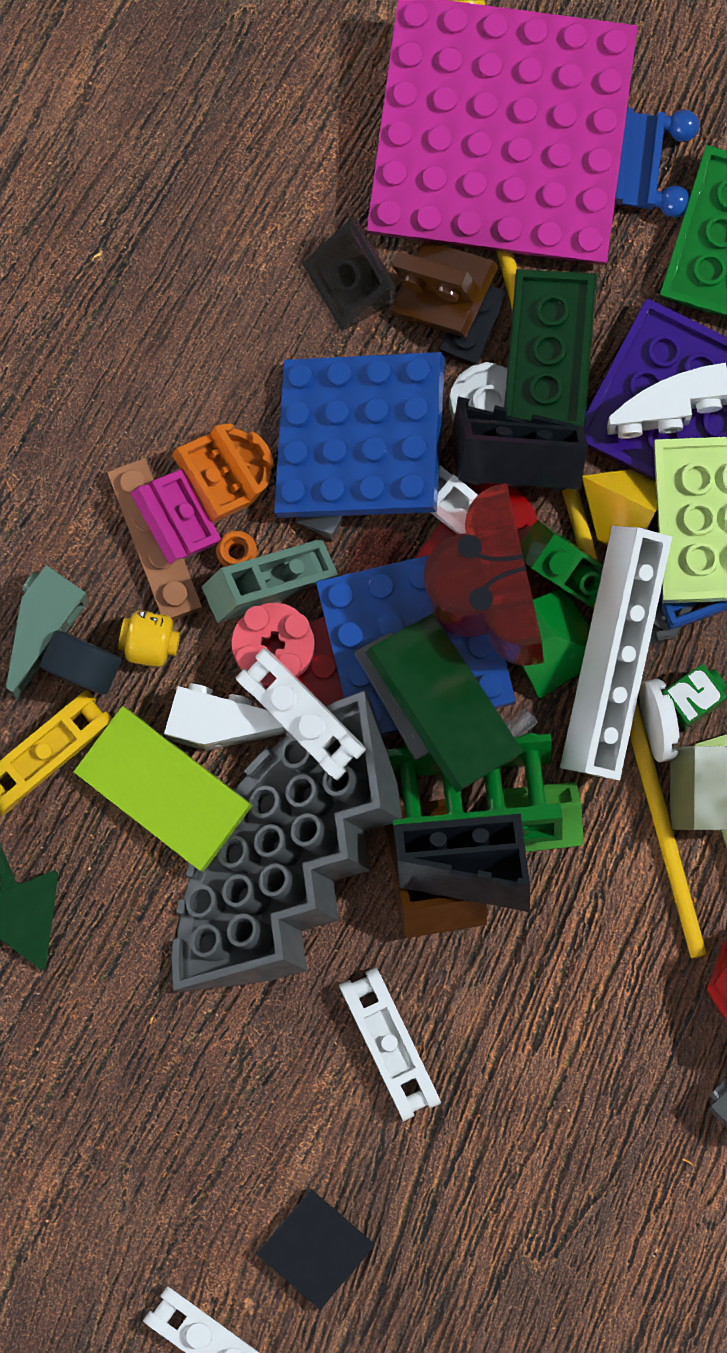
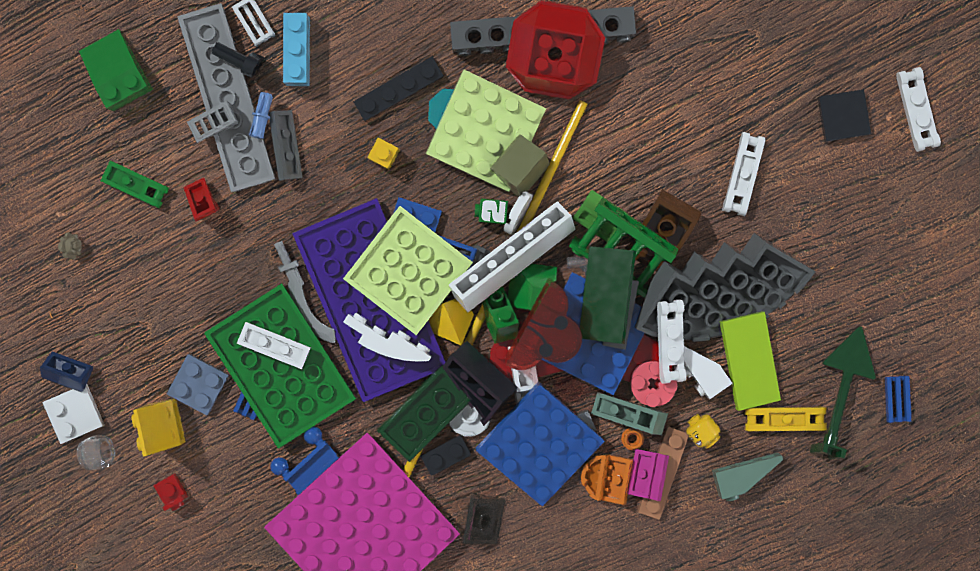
camera: 140 degrees left, 10 degrees up
(80, 662) = (741, 444): black wheel -> none
(442, 287) = (447, 481): reddish brown bracket -> none
(466, 860) = (655, 219): black wedge -> none

